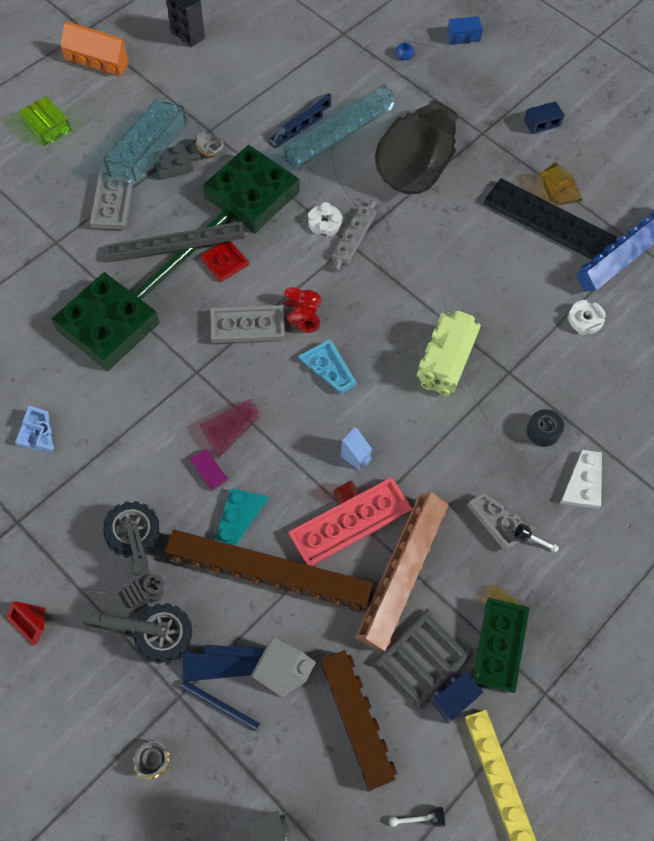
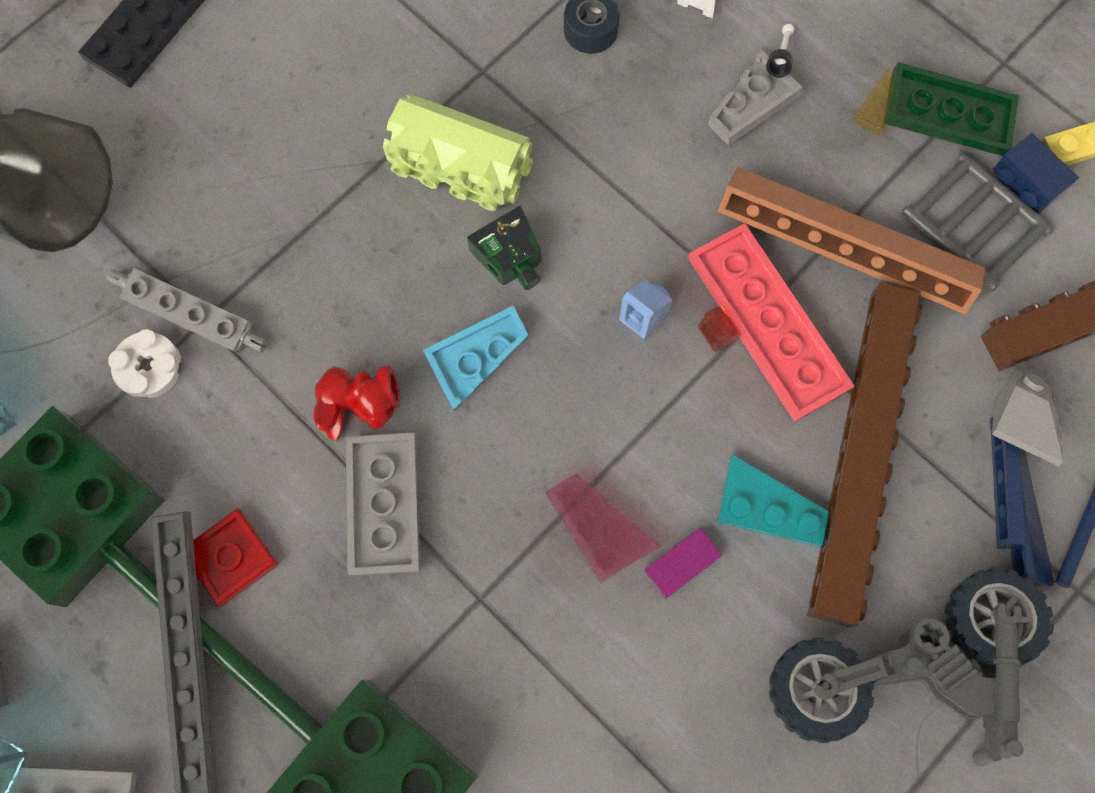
camera: 85 degrees left, 10 degrees up
(392, 382) = (508, 249): none -> torso

